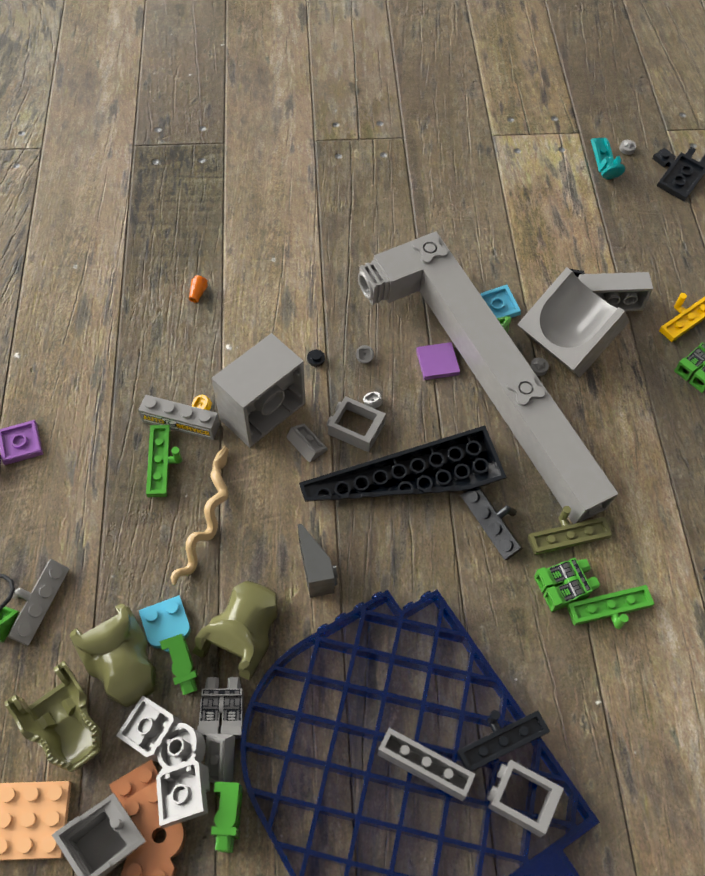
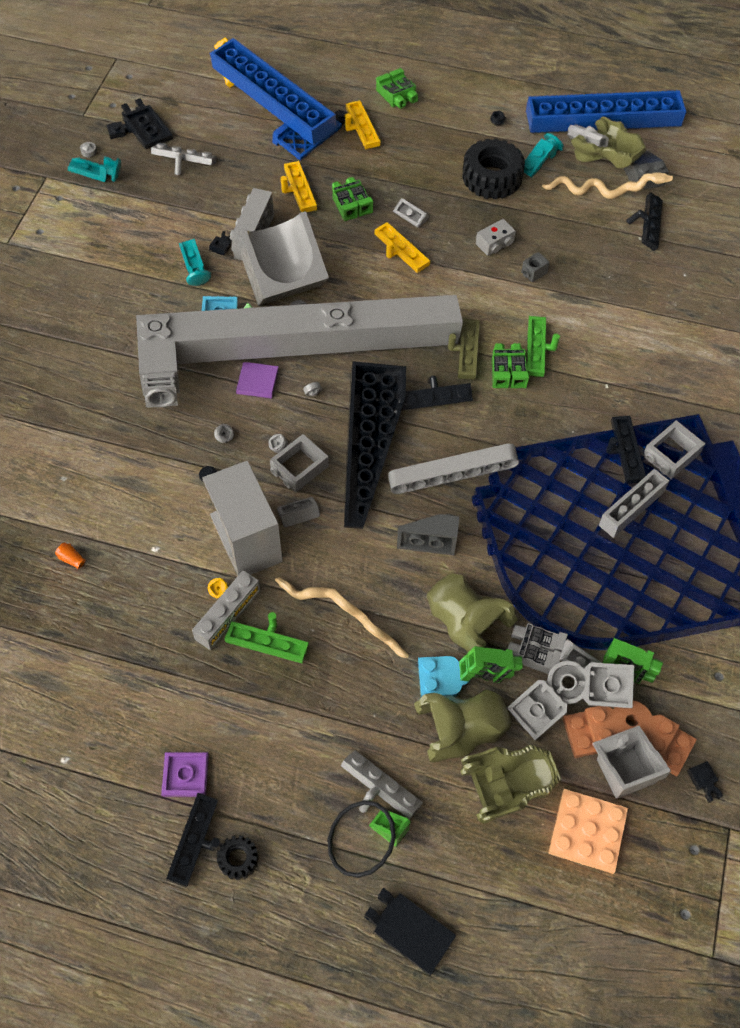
camera: 70 degrees left, 0 degrees up
(403, 563) = (453, 468): none -> light grey beam
(447, 408) = (312, 389): none -> light grey tile
(542, 266) = (194, 264): none -> teal piece
(665, 209) = (180, 154): none -> light grey plate
(667, 431) = (400, 246): none -> yellow plate

